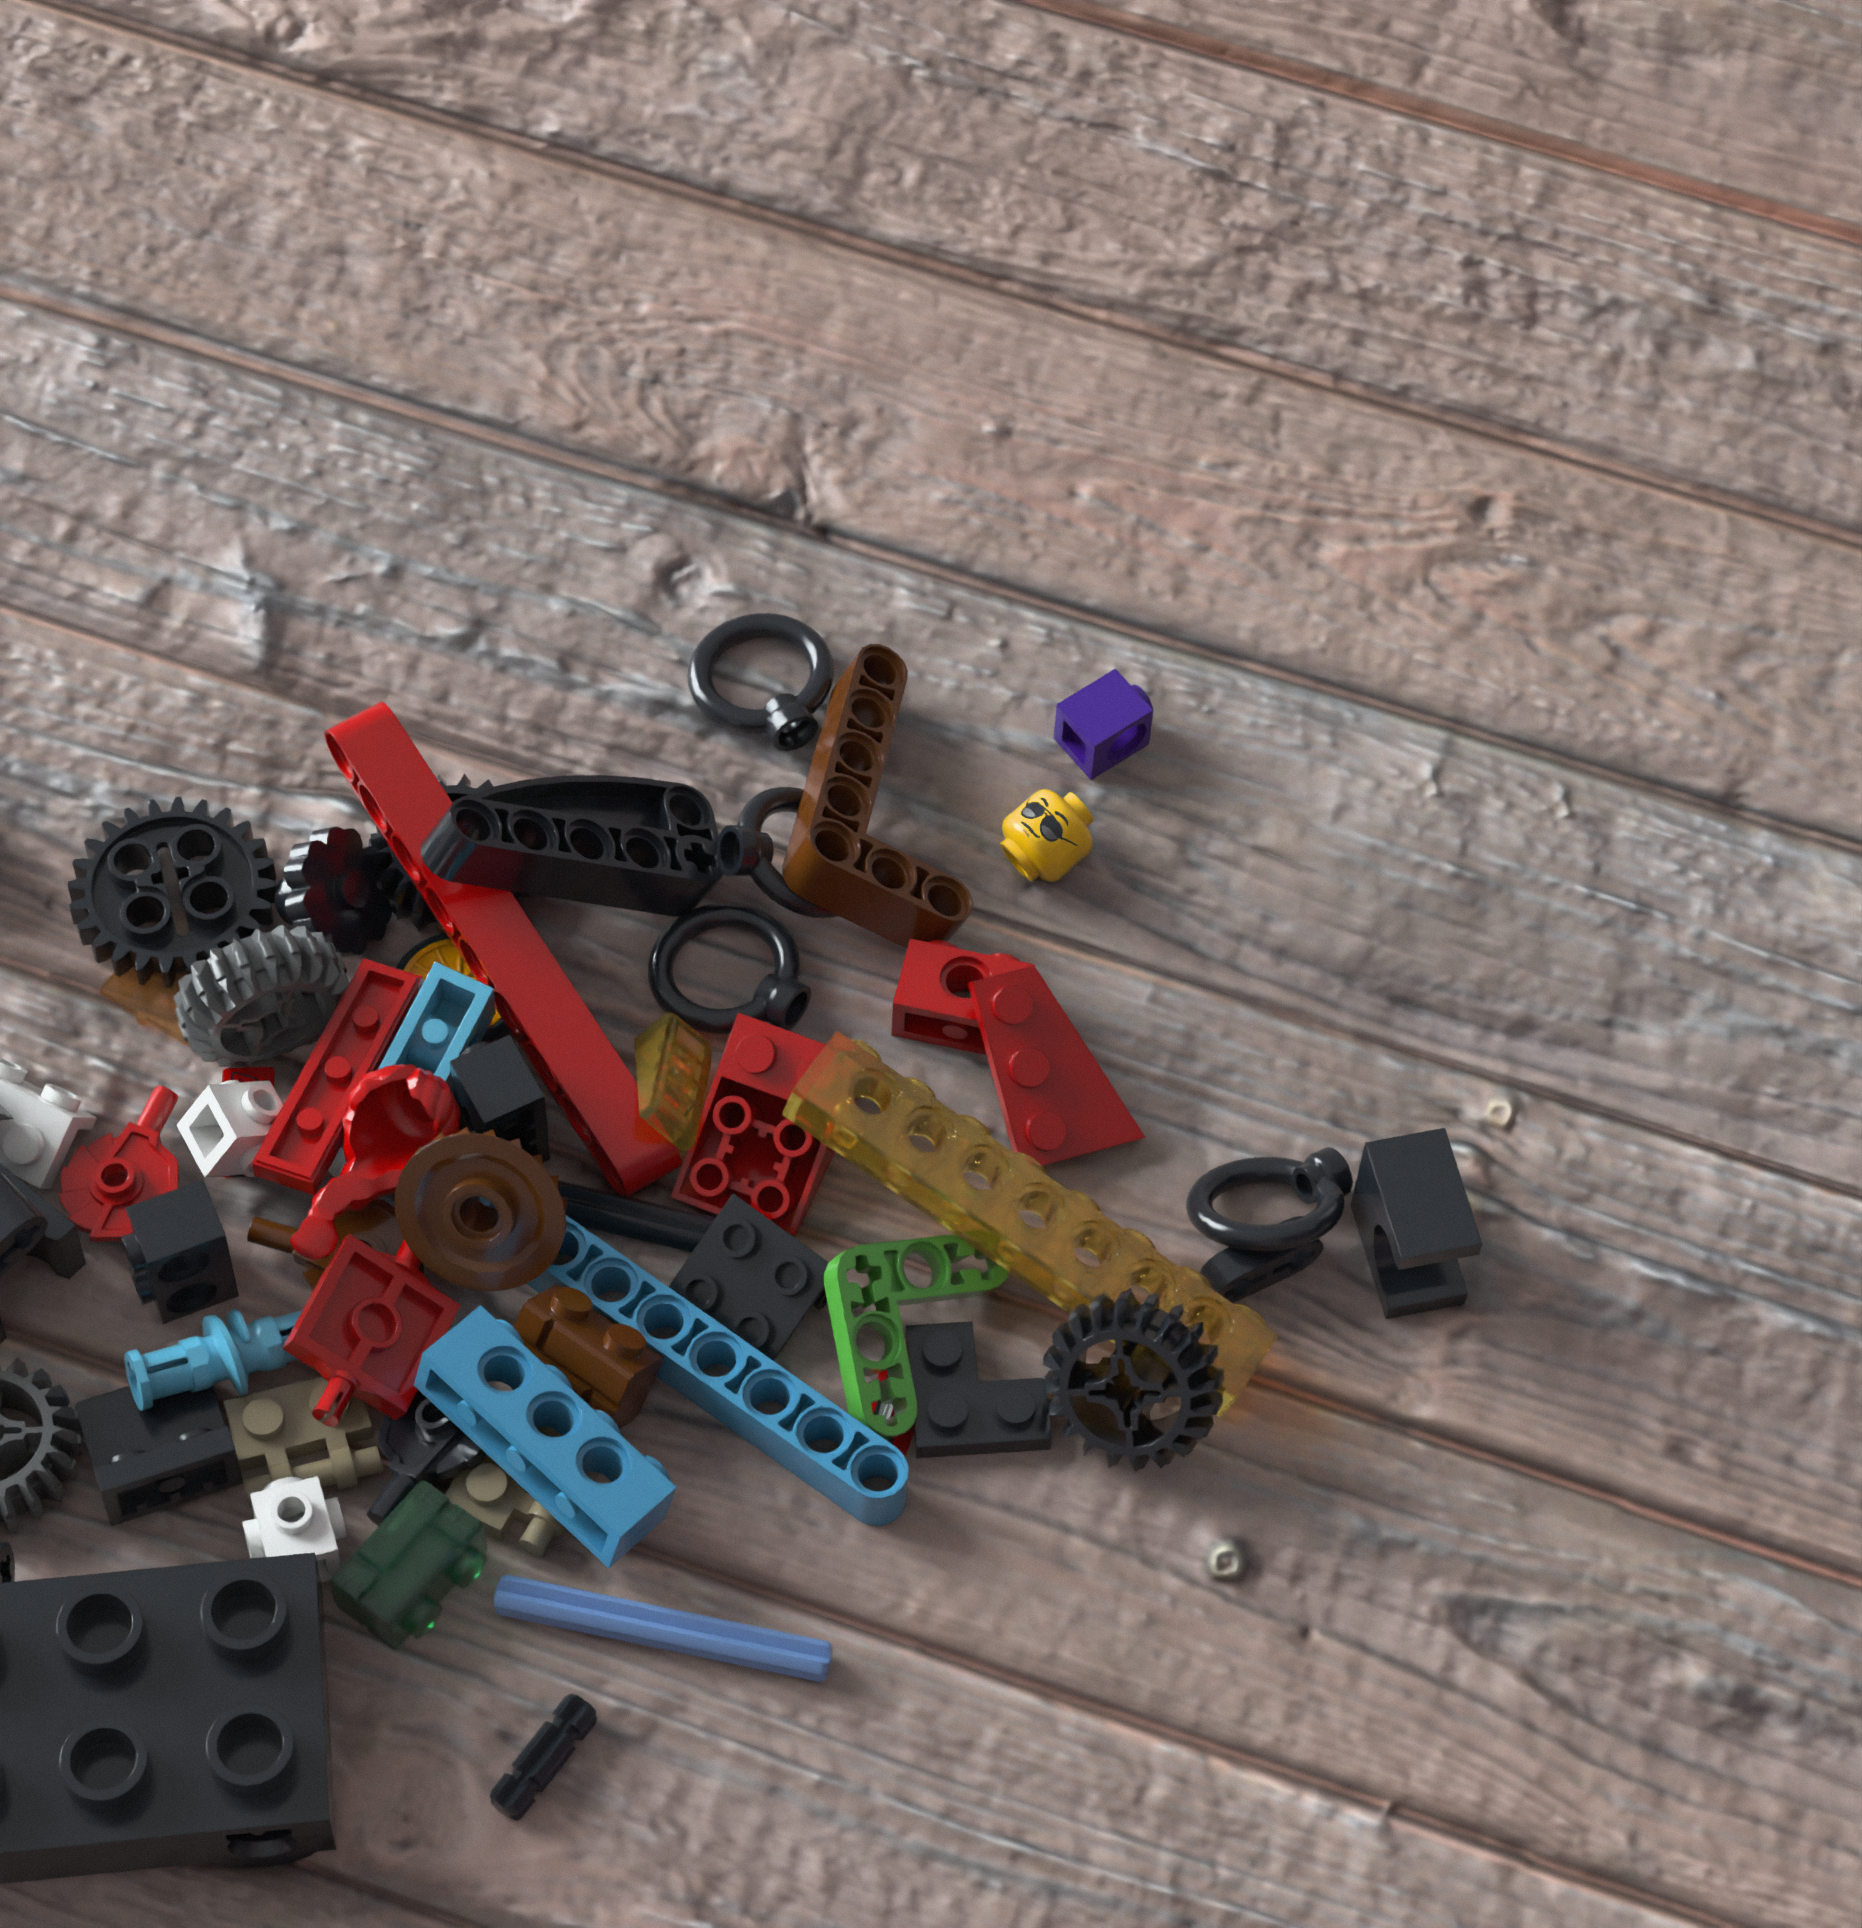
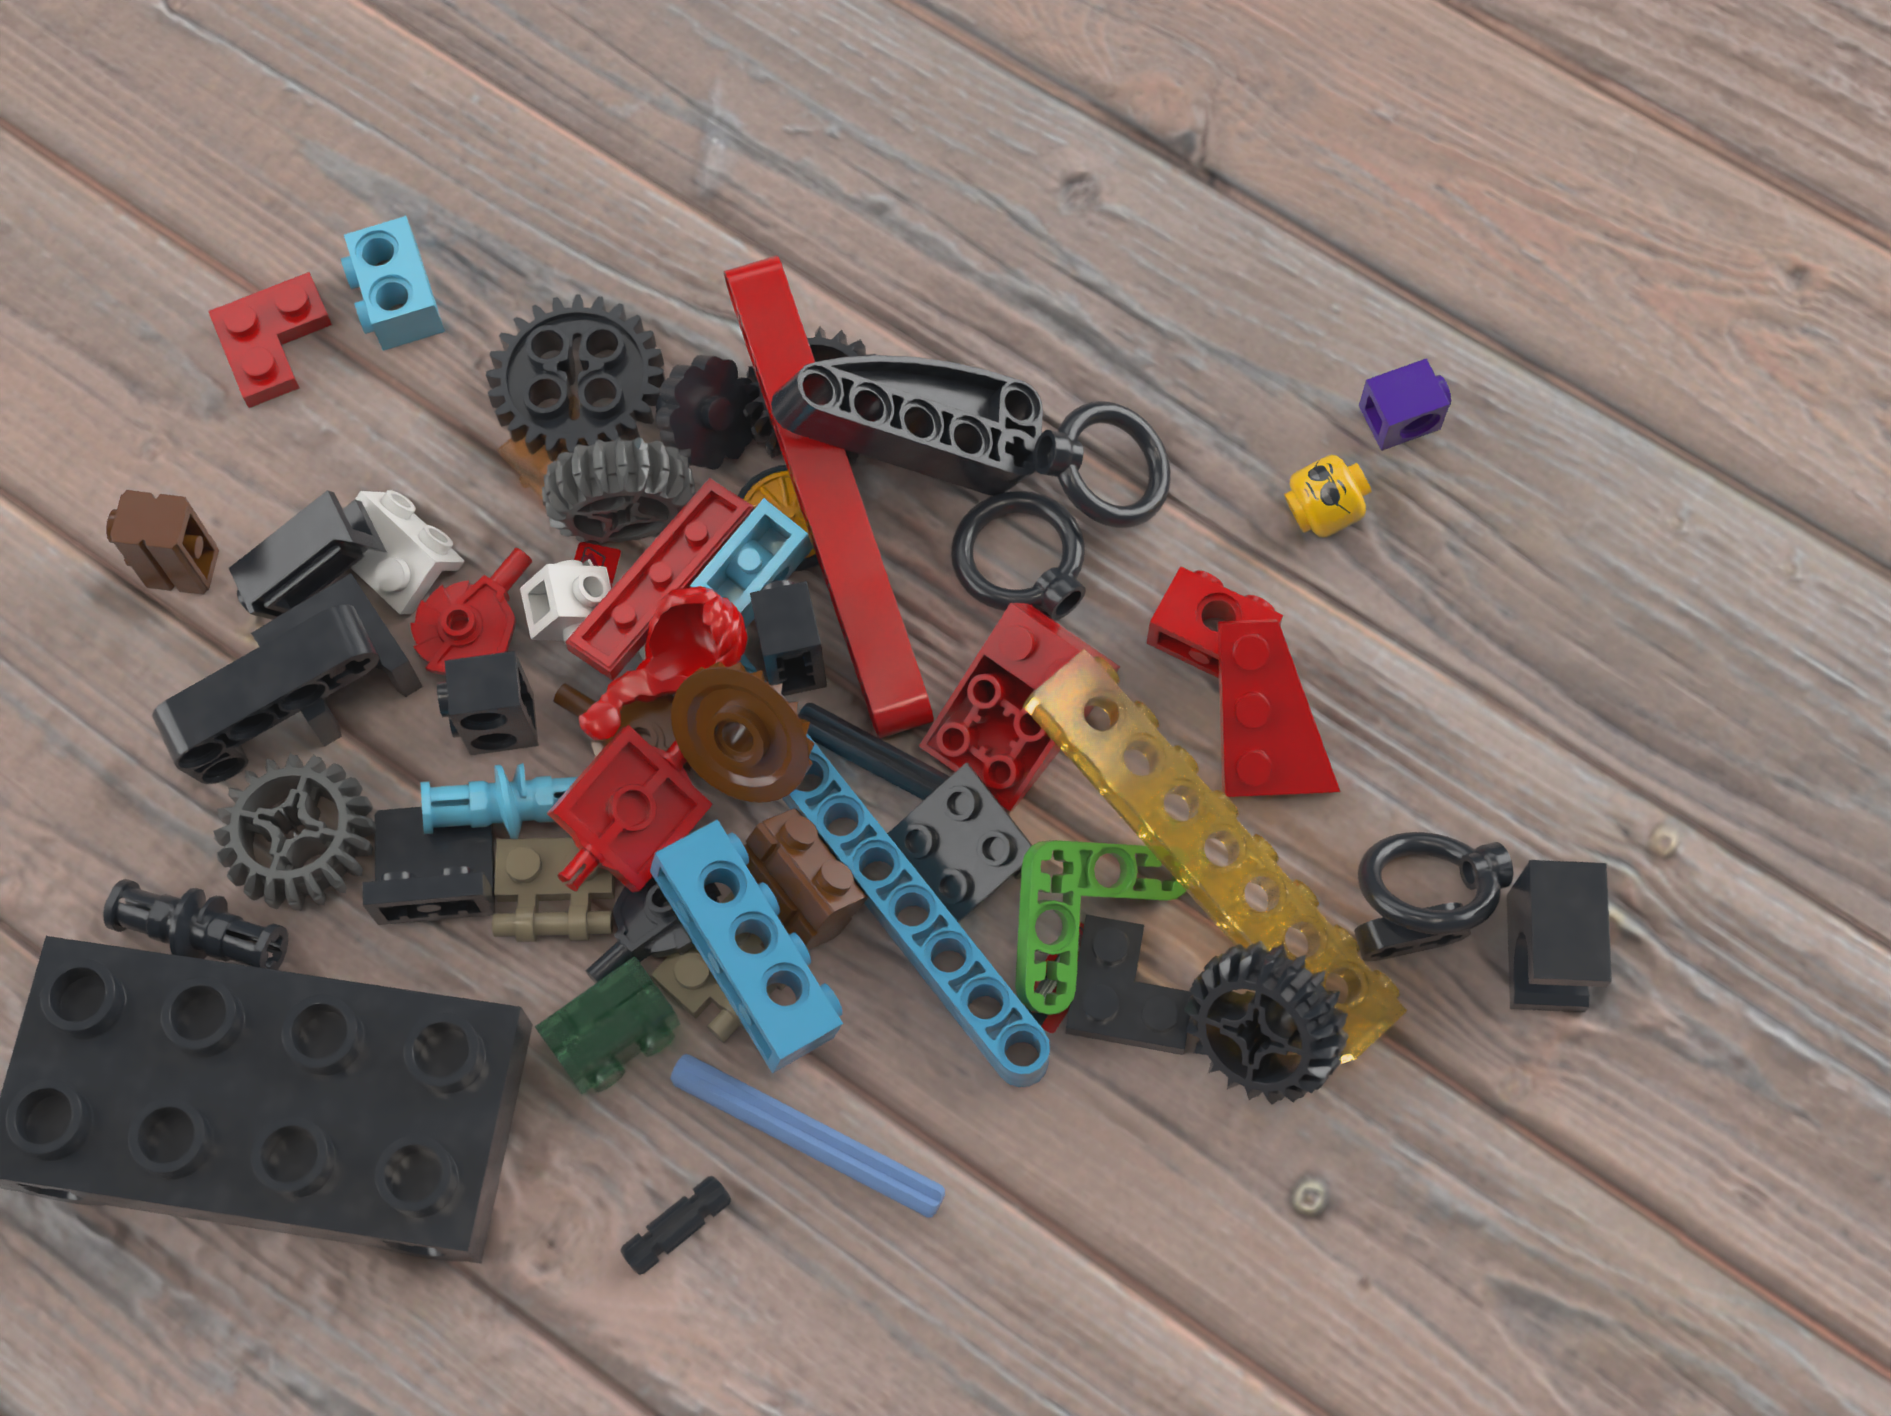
camera: 20 degrees right, 10 degrees up
(296, 1520) = (521, 971): white brick -> none
(672, 1078) = (944, 640): clear yellow slope -> none
(785, 717) = (1131, 336): black piece -> none
(829, 851) = (1131, 473): reddish brown beam -> none

